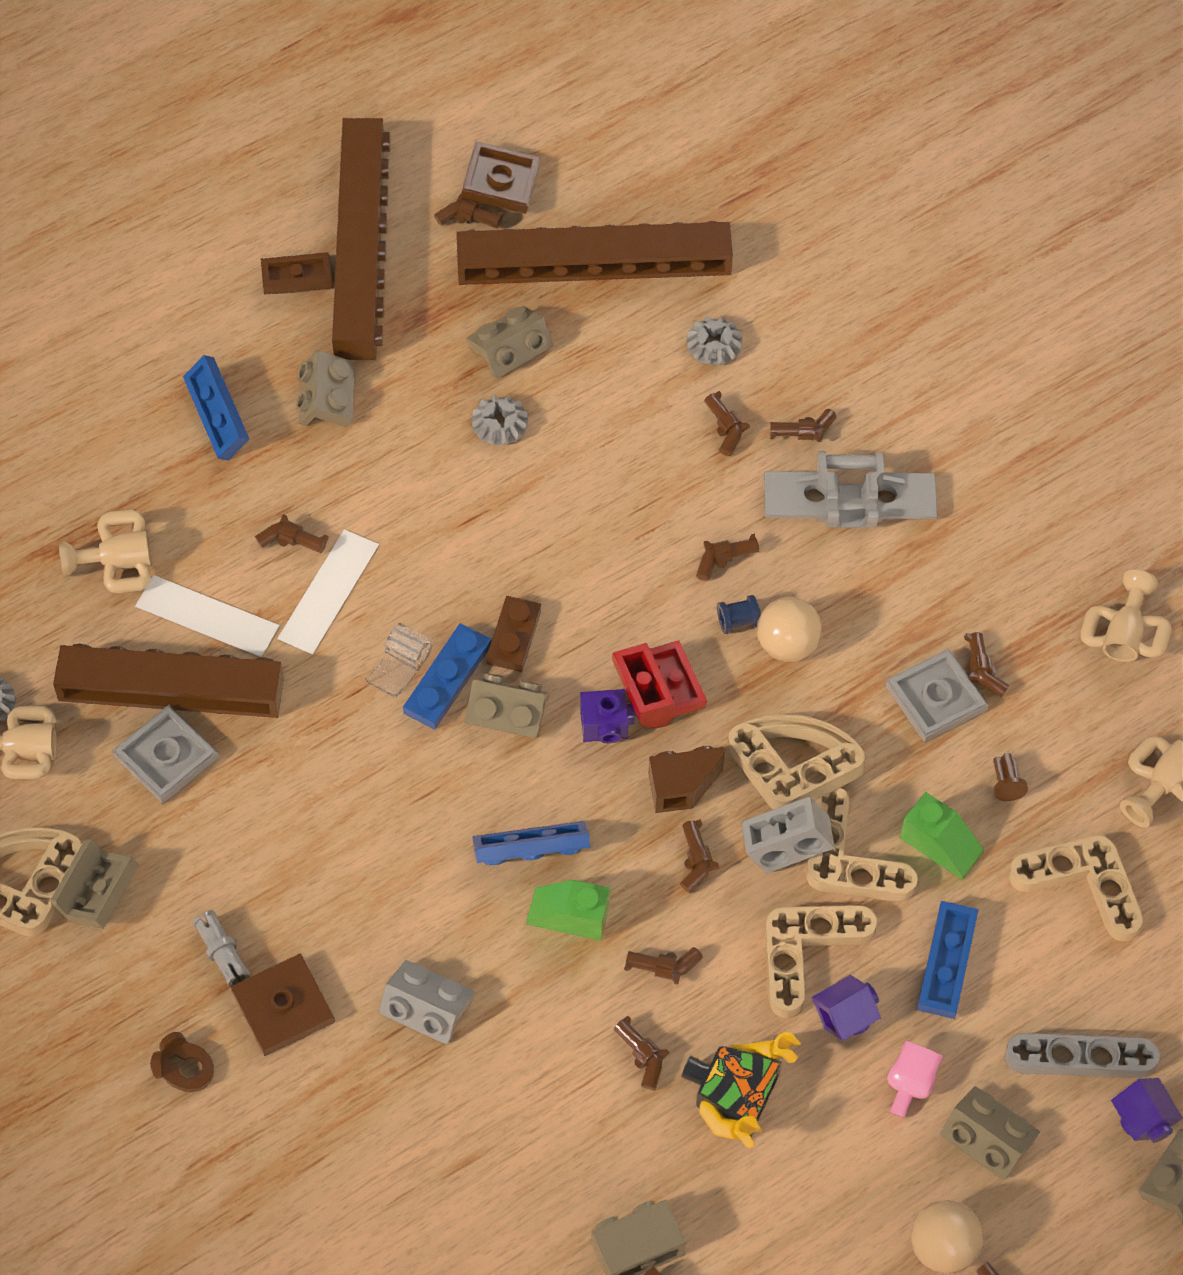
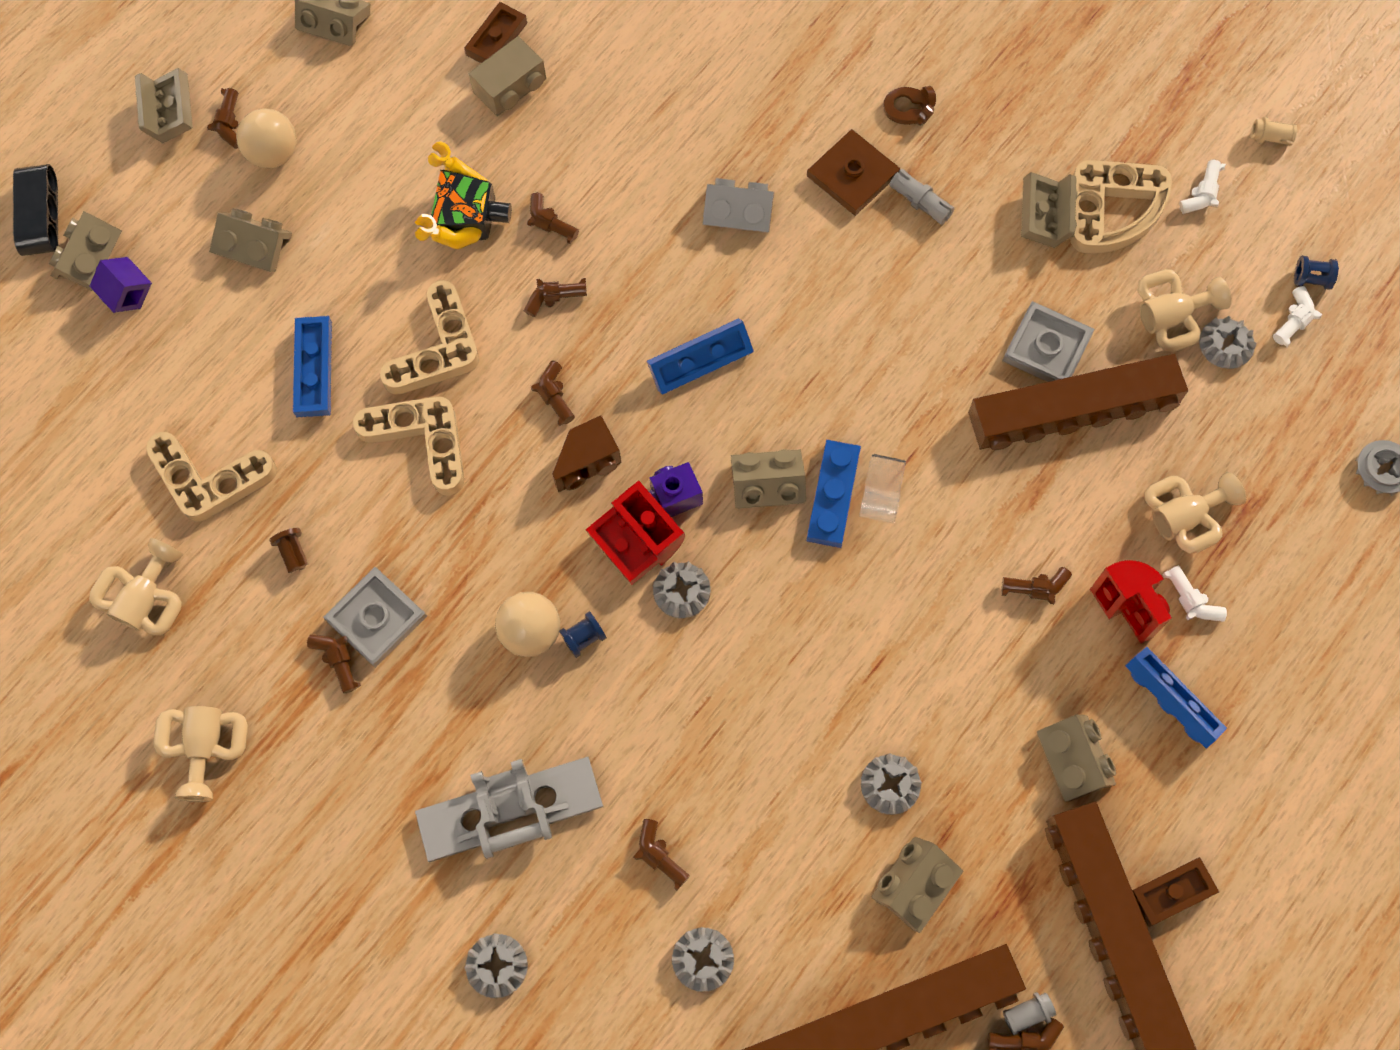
camera: 165 degrees right, 10 degrees up
(155, 484) = (1192, 599): none -> white piece
(207, 616) = (1077, 487): white sticker -> none
(214, 484) = (1130, 591): none -> red brick
(328, 591) = (978, 548): white sticker -> none
(448, 227) = (1029, 1013): none -> light grey pin
(514, 633) = (789, 554): reddish brown plate -> none
(571, 908) = (646, 309): bright green slope -> none
(613, 628) = (673, 603): none -> light grey gear
(723, 552) = (618, 700): reddish brown piece -> none
(782, 778) = (496, 478): tan beam -> none
(788, 835) = (473, 413): light grey brick -> none
(805, 428) = (574, 875): reddish brown piece -> none
(847, 1007) = (388, 293): dark purple brick -> none
(906, 392) = (509, 977): none -> light grey gear
(912, 1075) = (321, 262): bright pink piece -> none
(941, 835) = (342, 472): bright green slope -> none
(1081, 1050) = (184, 318): light grey beam -> none

